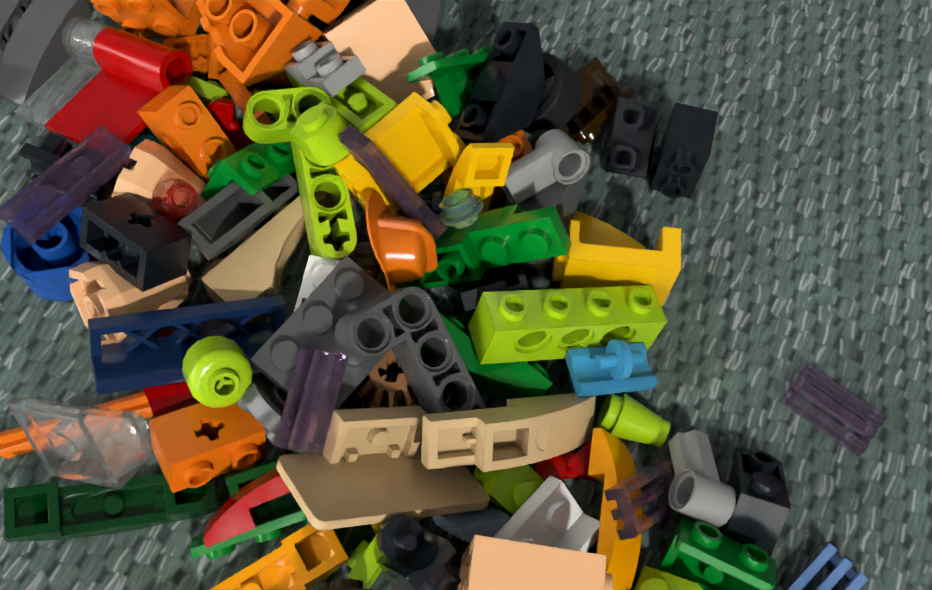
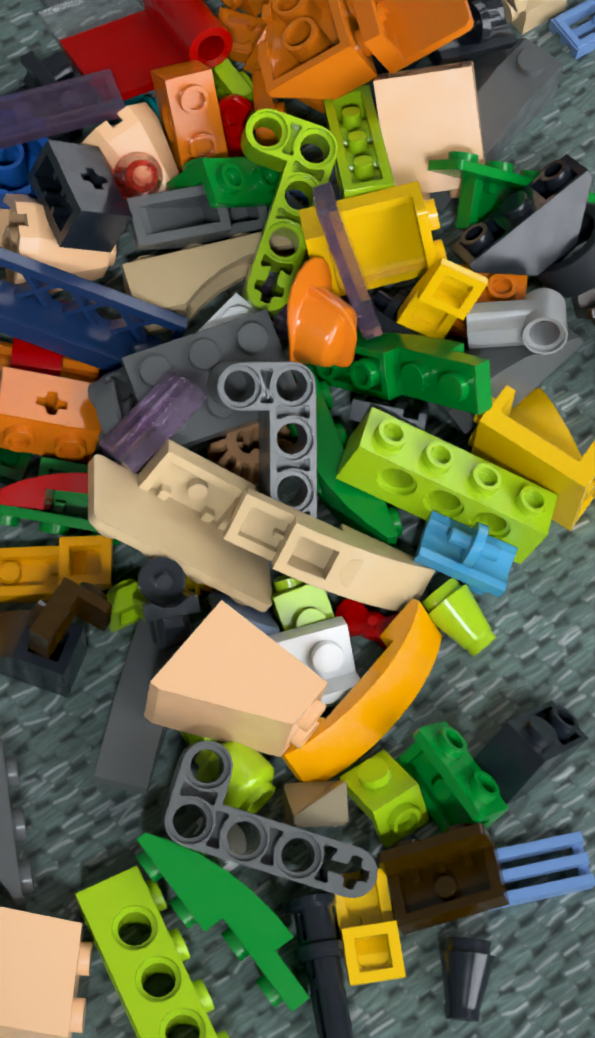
camera: 30 degrees right, 0 degrees up
(217, 371) = (86, 354): lime head -> none
(317, 134) = (300, 174): lime plate -> none
(323, 67) = (353, 113): light grey slope -> none
(461, 208) = (407, 321): clear light blue plate -> none
(626, 506) = (387, 678): tile -> none
(696, 482) = (478, 700): light grey piece -> none

